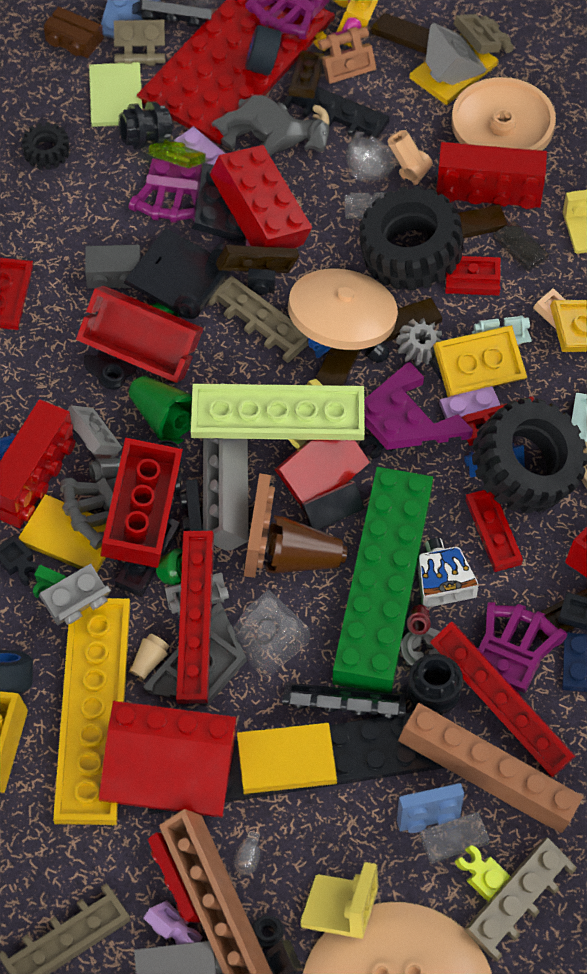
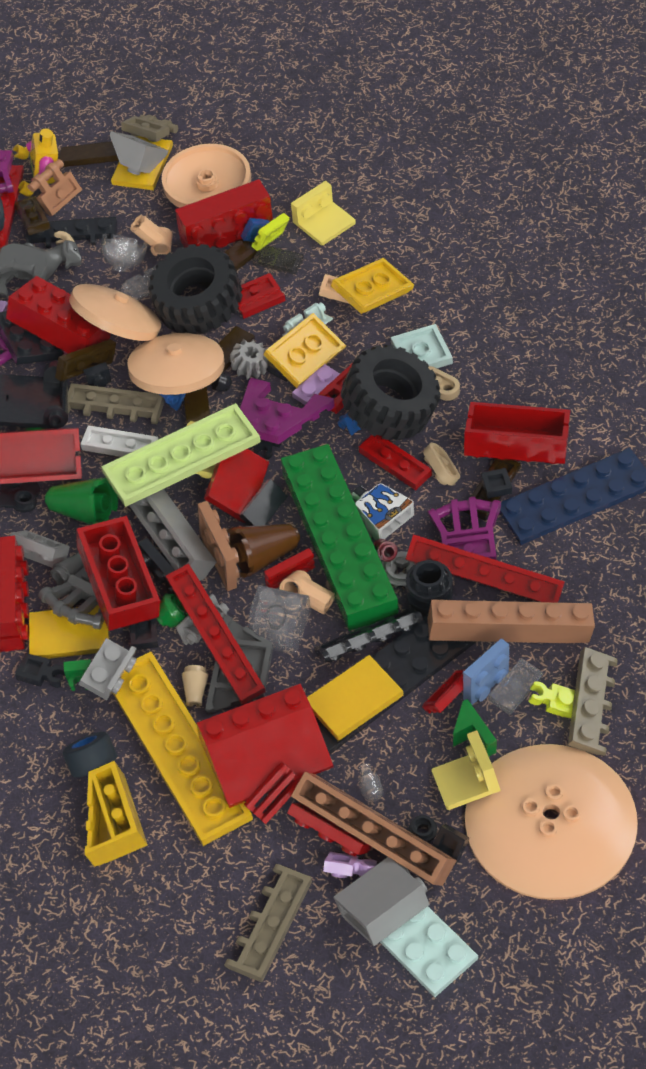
camera: 25 degrees left, 5 degrees down
(129, 829) = (281, 799): none -> red tile
(236, 361) = (113, 441): none -> white plate
(313, 612) = (320, 597): none -> light nougat piece
(314, 587) = (301, 561): none -> red tile
(315, 223) = (115, 312): none -> light nougat dish
(379, 805) = (445, 693): none -> red tile
(380, 851) = (470, 721): none -> green slope
(516, 203) = (252, 228): none -> blue tile
(529, 213) = (270, 231): none -> neon yellow tile
(537, 559) = (441, 463): none -> tan plate

